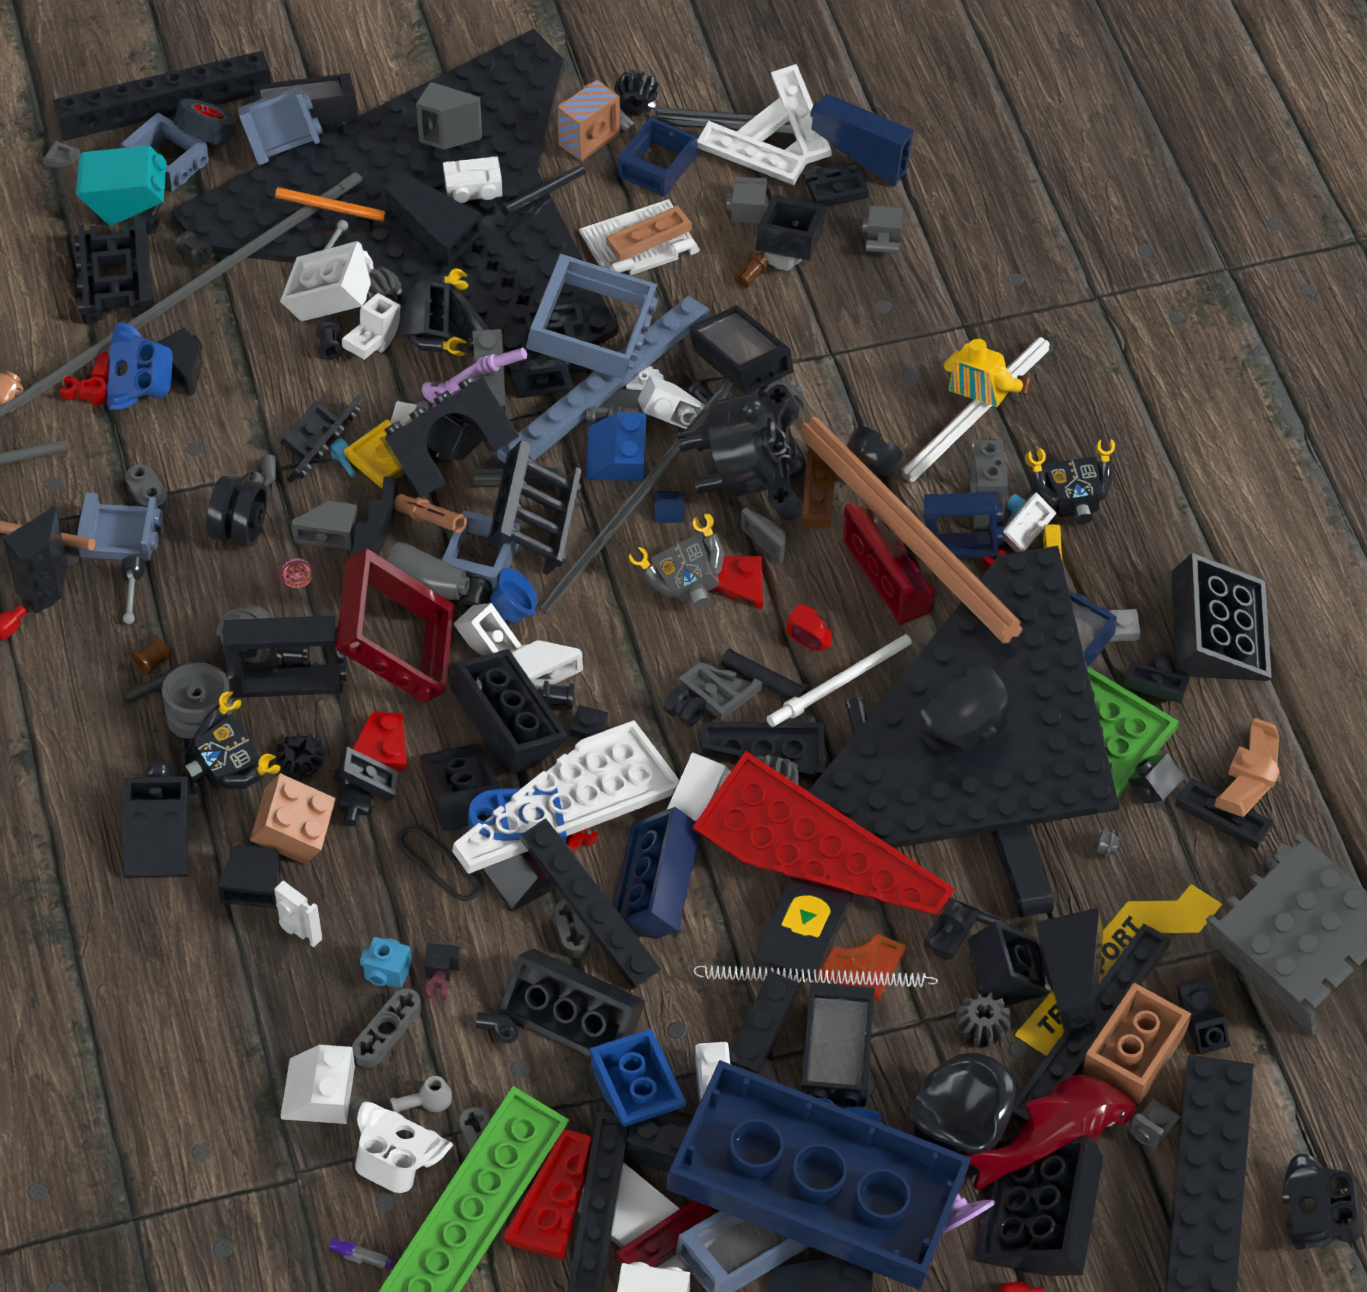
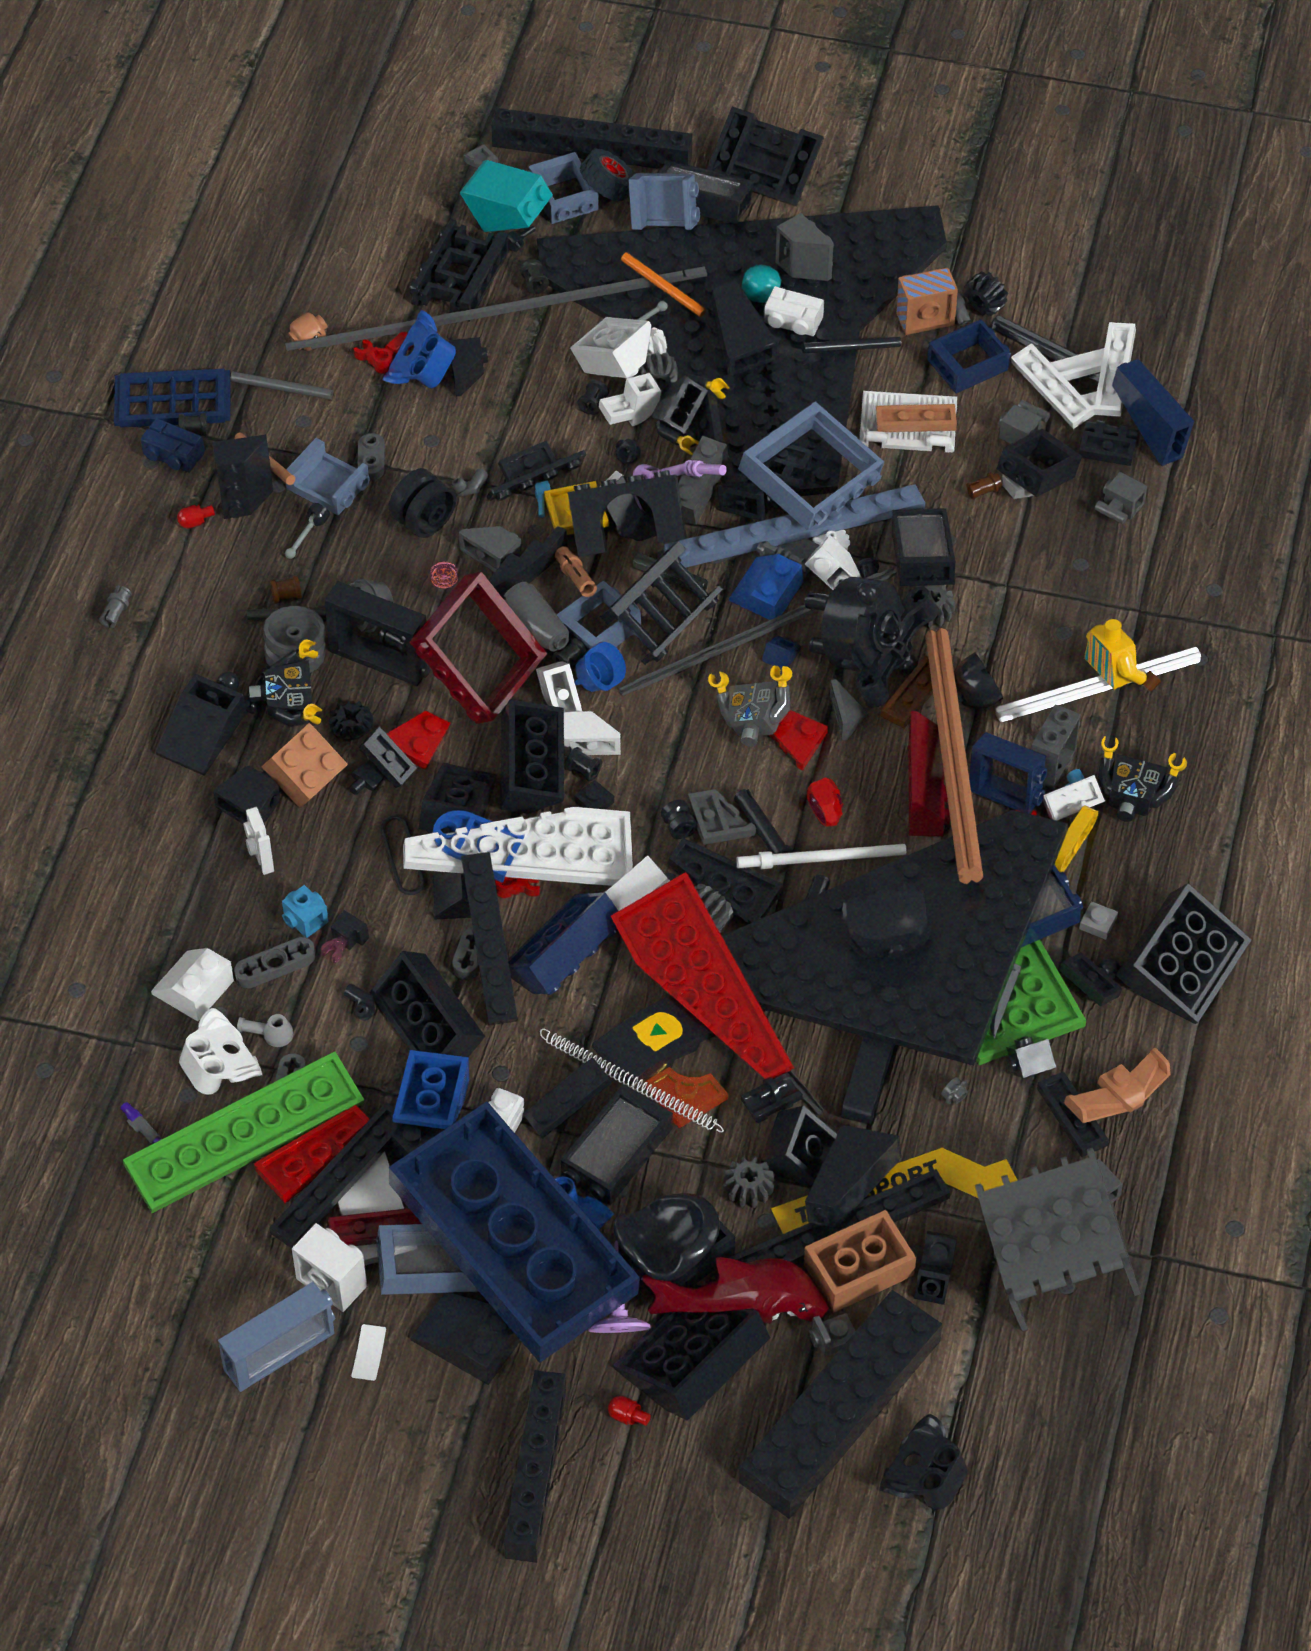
camera: 30 degrees right, 0 degrees up
(343, 44) = (766, 154): none -> black slope
(396, 383) = (624, 455): none -> black plate
(423, 164) = (759, 282): none -> teal hair

